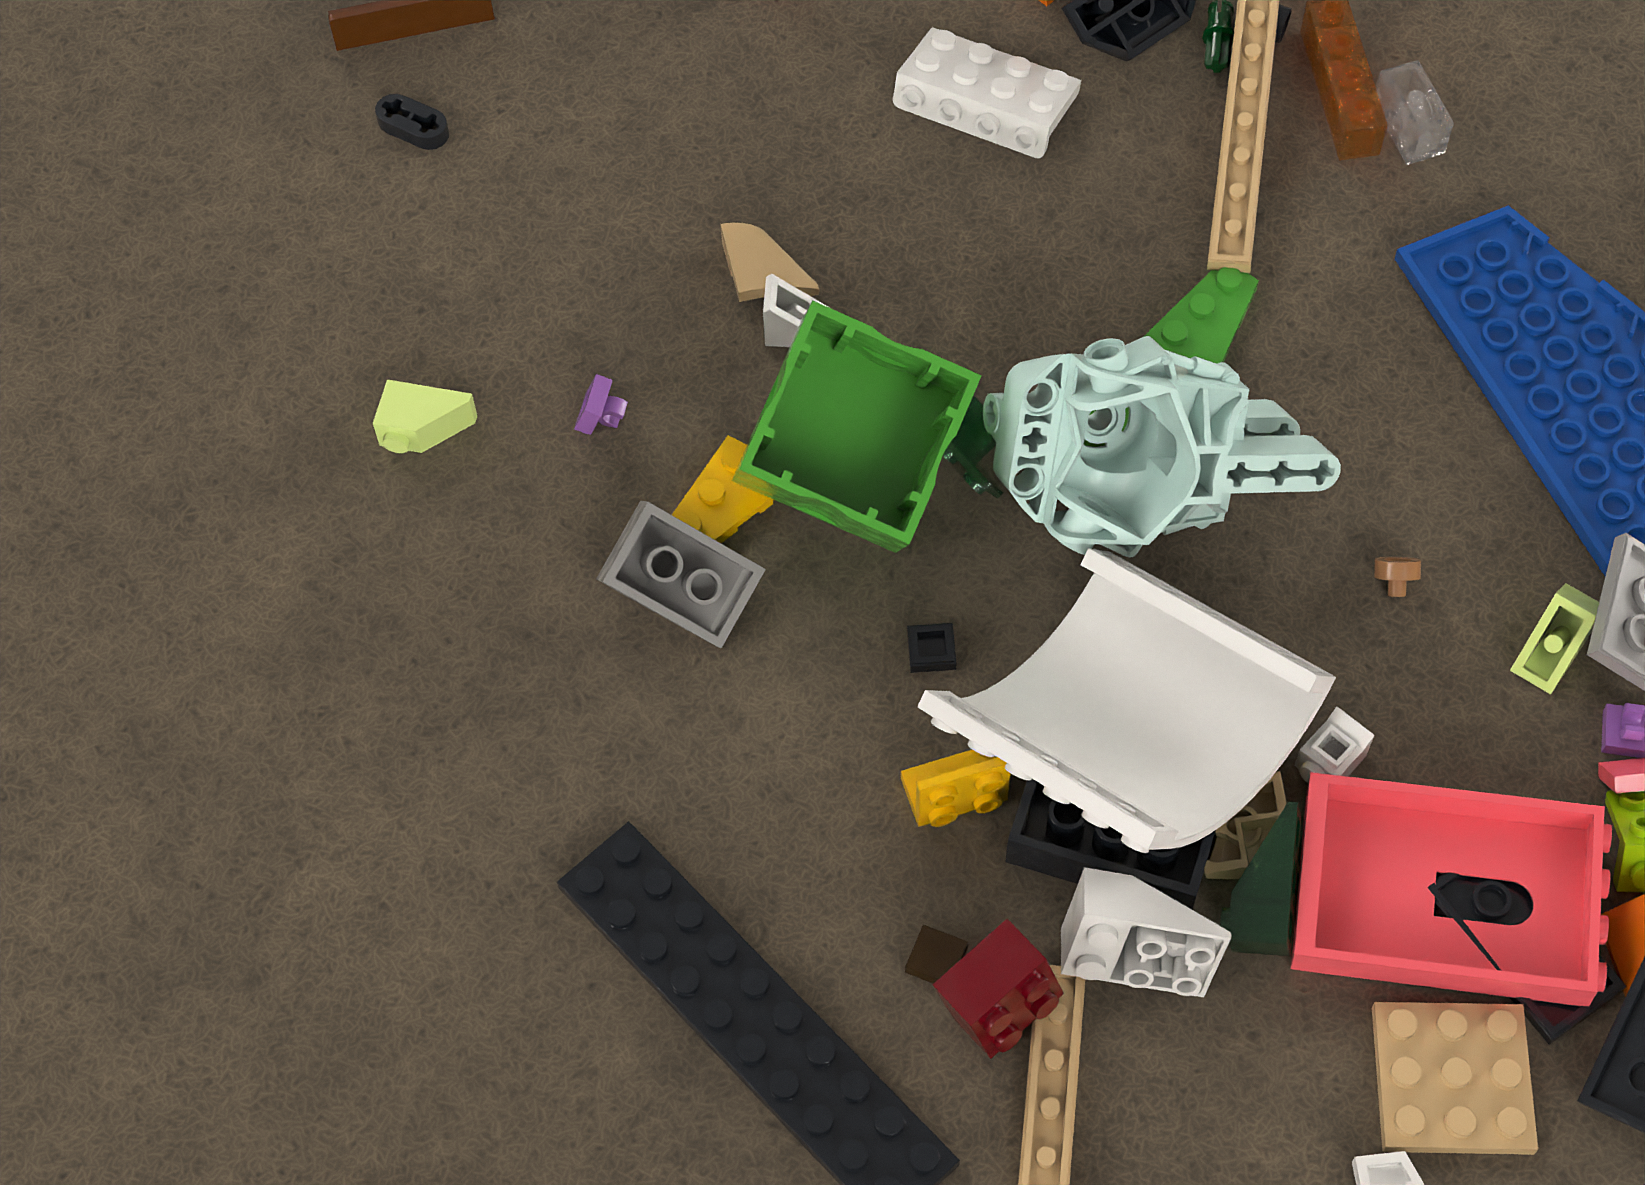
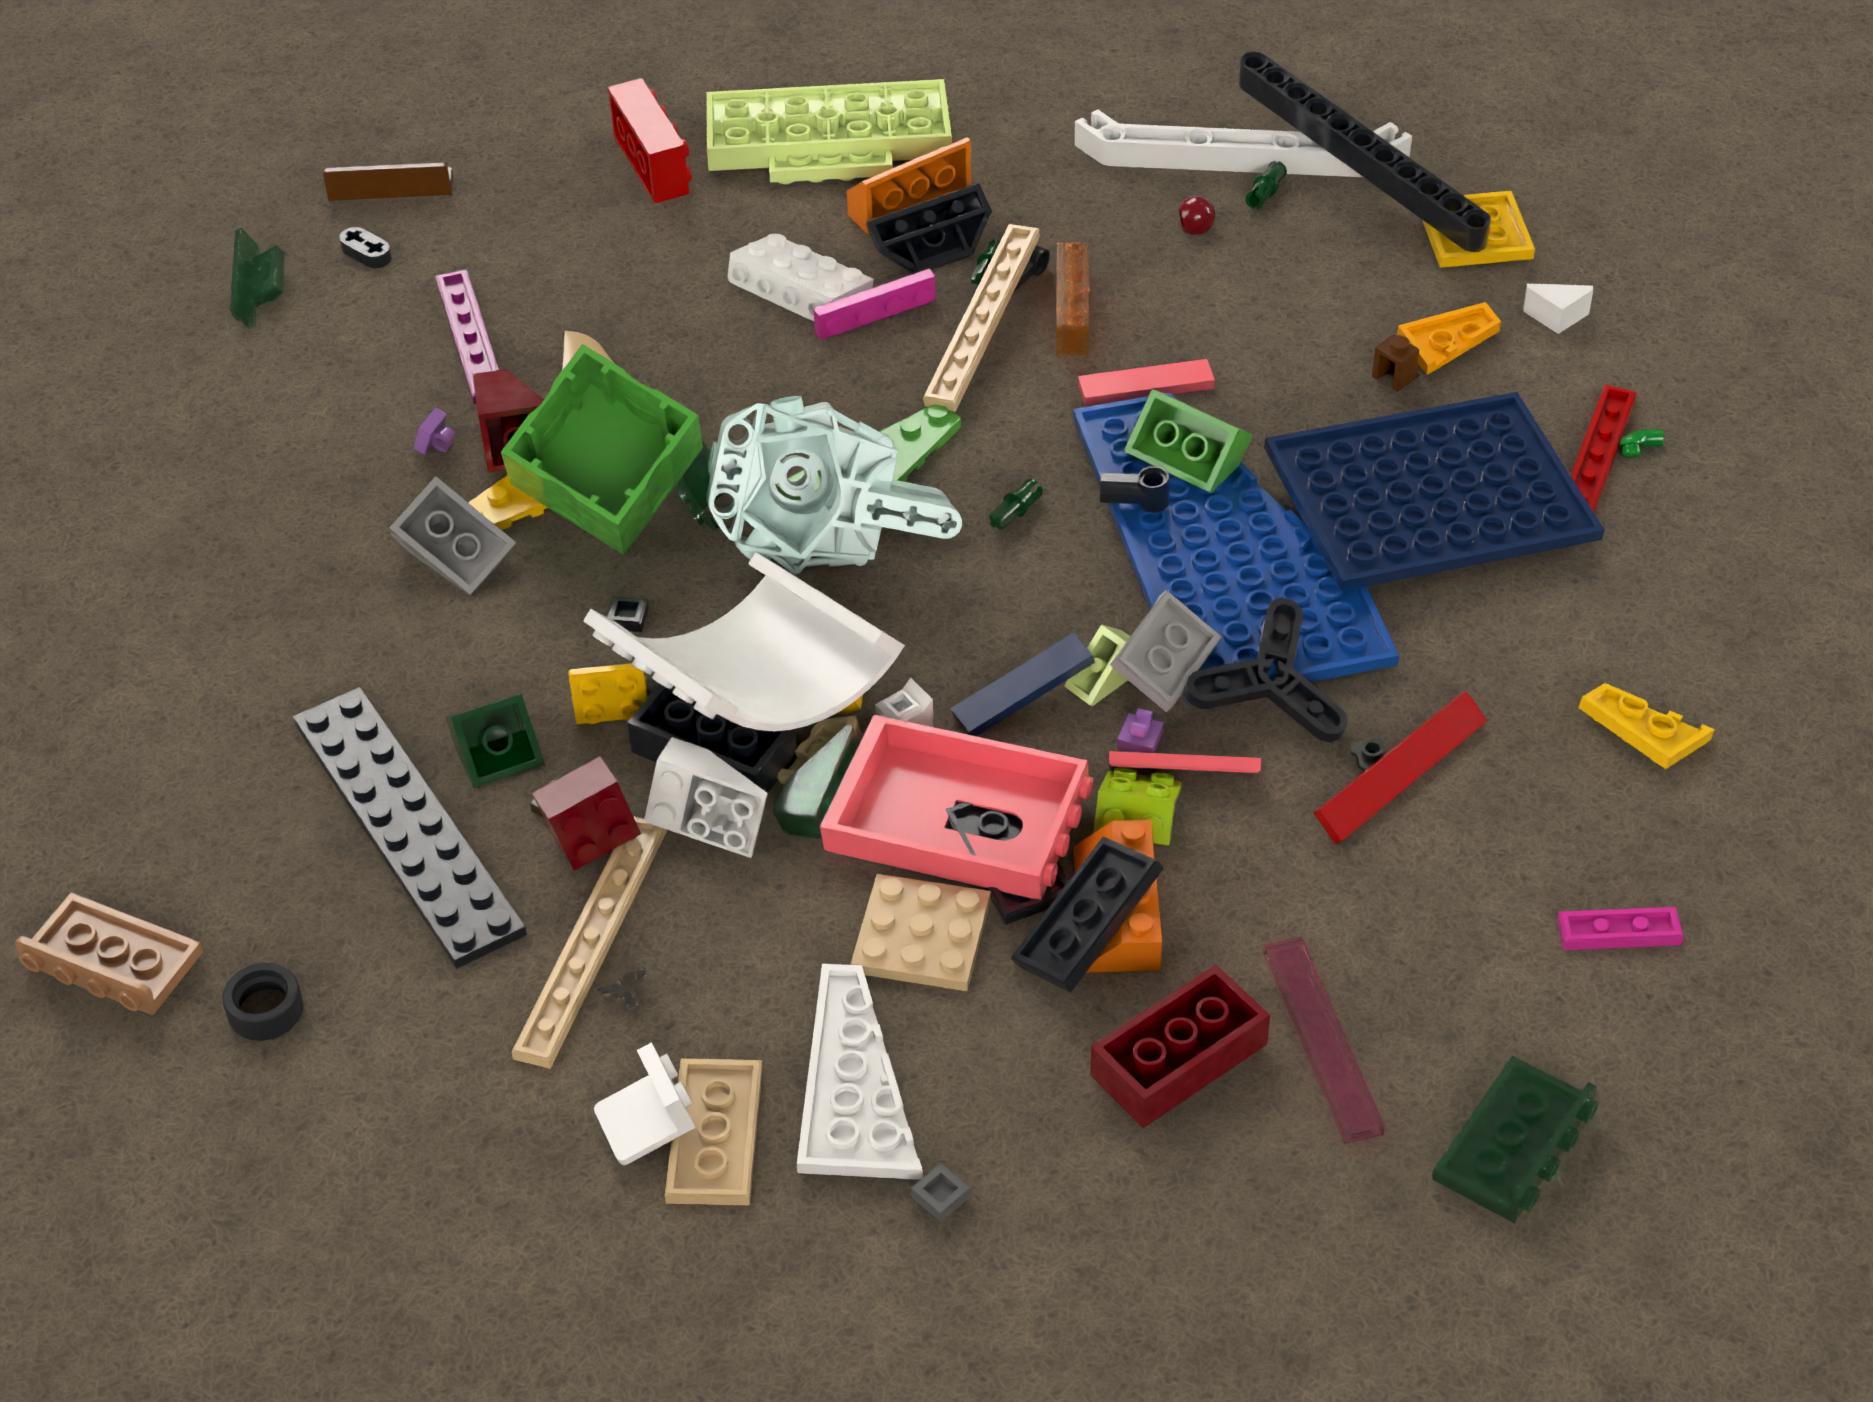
camera: 10 degrees right, 15 degrees down
(287, 192) = (254, 277): none -> clear green bracket
(420, 416) = (302, 422): yellowish green slope -> none
(593, 242) = (466, 325): none -> tile
(702, 384) = (502, 408): none -> dark red slope
(830, 875) = (495, 740): none -> dark green slope
(1092, 124) = (874, 304): none -> dark pink plate
(1367, 404) = (1015, 504): none -> dark green axle
(1397, 572) = (997, 610): medium nougat tile -> none
(1414, 112) = (1115, 324): clear brick -> none
(1466, 189) = (1139, 382): none -> coral tile
(1470, 687) = (1022, 685): none -> dark blue tile
(1522, 368) = (1147, 489): none -> black piece
(1563, 286) = (1187, 441): none -> bright green slope

